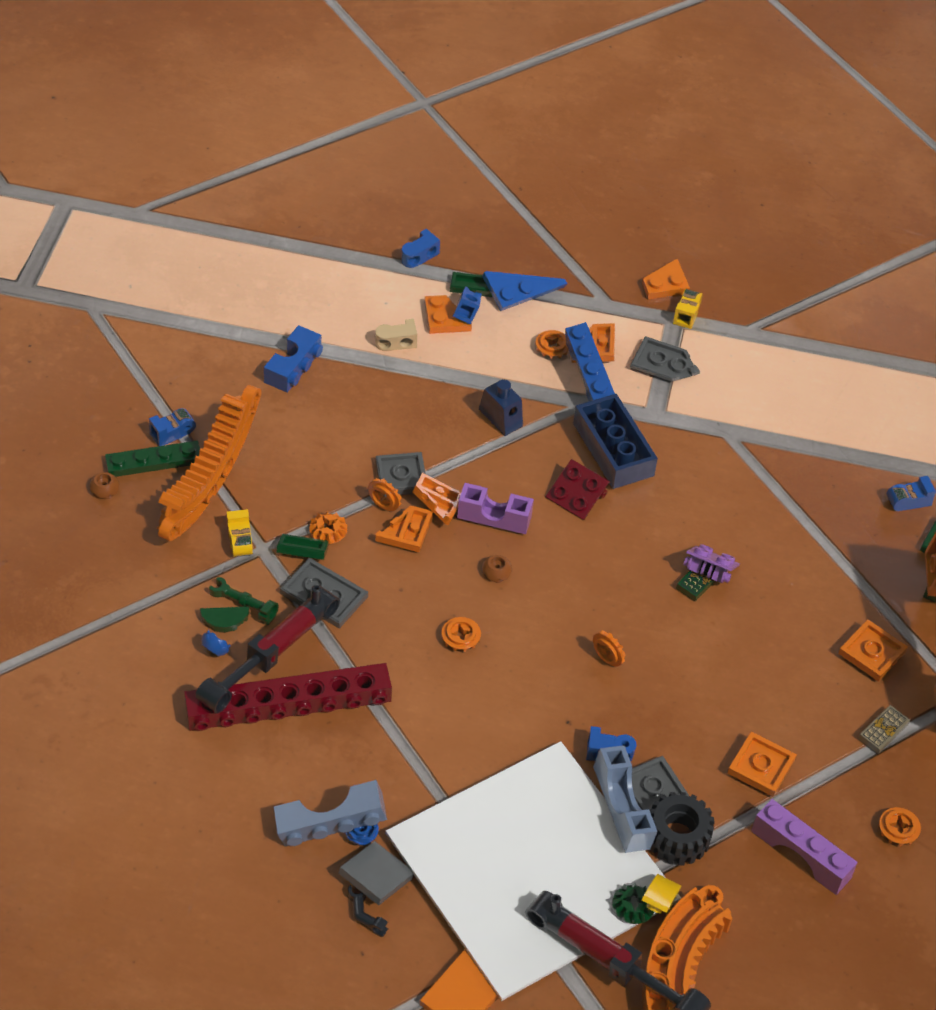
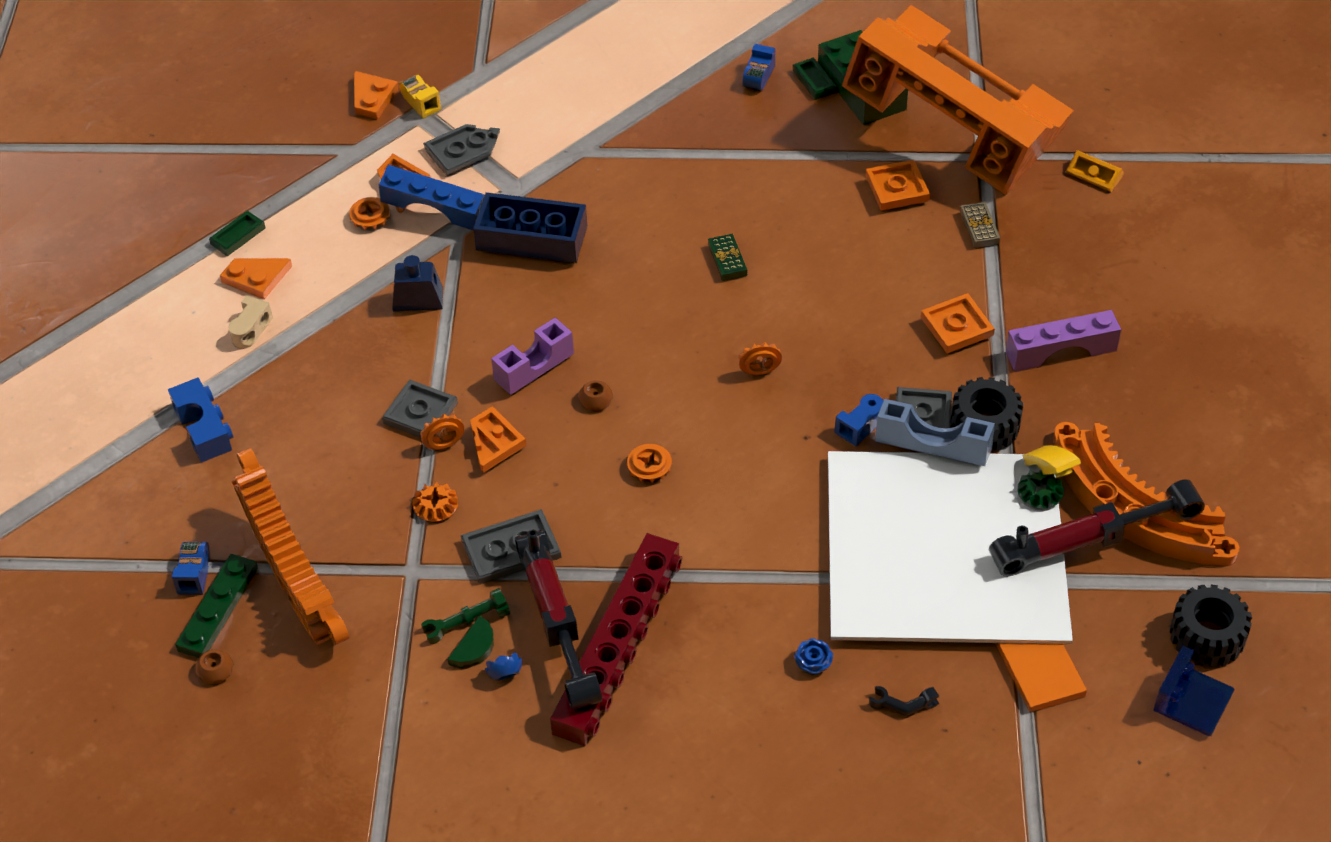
camera: 50 degrees left, 0 degrees up
(239, 532) = (383, 577): yellow leg -> none
(302, 546) = (442, 534): dark green tile -> none
(361, 808) = (773, 701): sand blue arch -> none
(376, 873) = (871, 669): dark grey tile -> none
(420, 250) = (157, 247): blue leg -> none
(437, 497) = (480, 392): orange wing -> none
(467, 305) = (268, 244): blue leg -> none
(516, 289) = (279, 201): blue wing -> none
(578, 489) = (558, 286): dark red hinge -> none
(704, 553) = (727, 235): medium lavender hinge -> none
(906, 820) = (1081, 261): orange gear -> none

